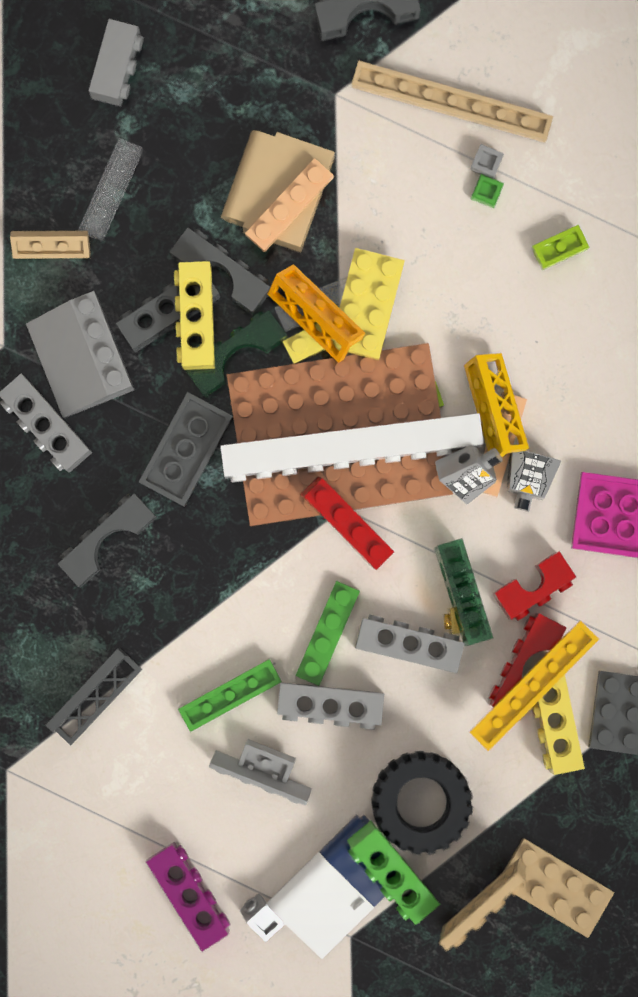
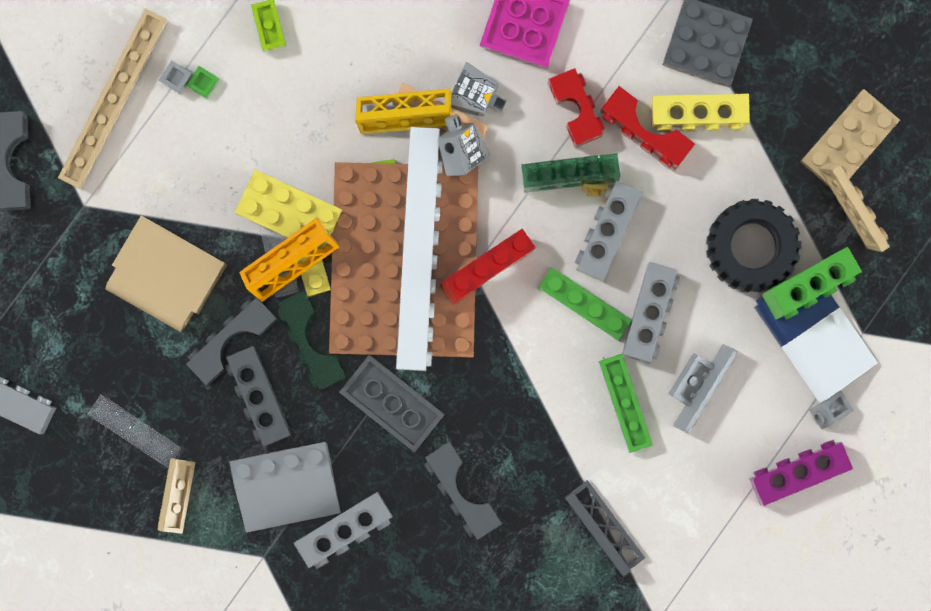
camera: 75 degrees left, 0 degrees up
(195, 274) = (234, 359): light yellow brick -> none
(289, 205) = (183, 265): light nougat plate -> none
(534, 685) = (666, 124): yellow plate -> none

